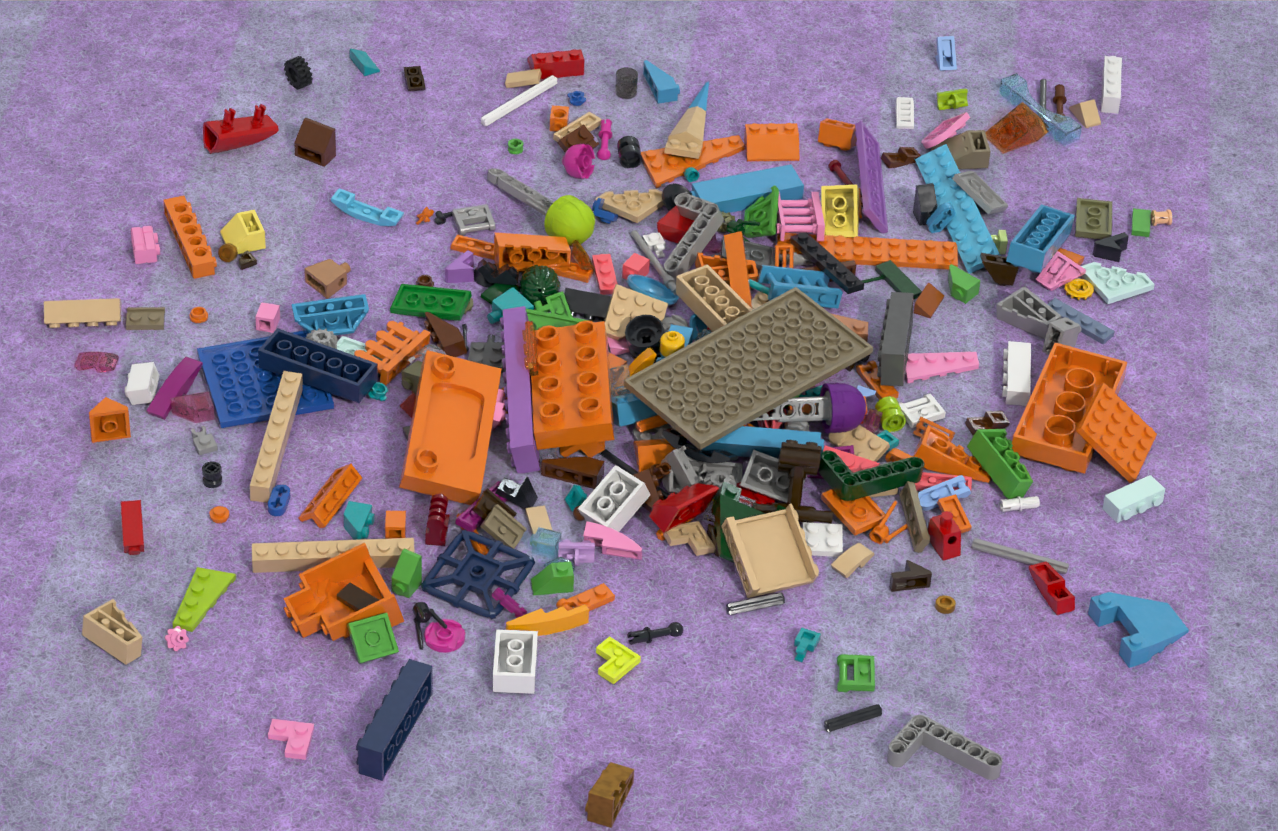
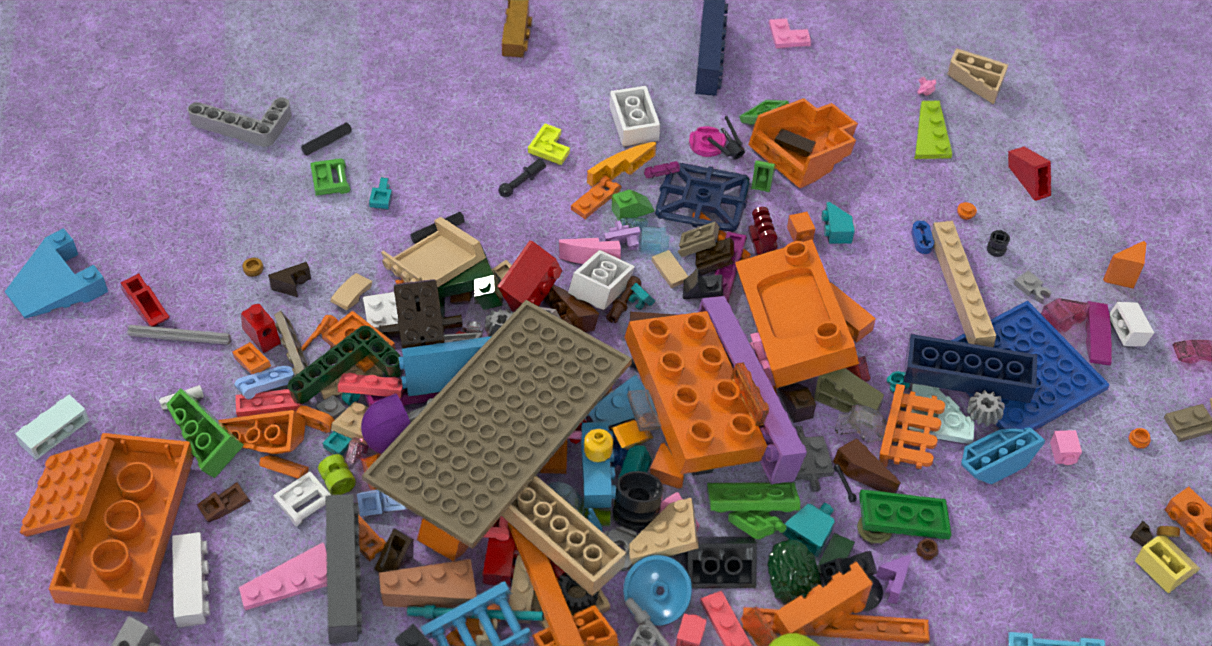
camera: 165 degrees right, 10 degrees up
(306, 555) = (839, 182): tan brick -> none
(327, 277) = (1038, 523): medium nougat torso -> none
(331, 495) = (874, 246): orange fence -> none
(390, 442) = (856, 317): none -> orange slope

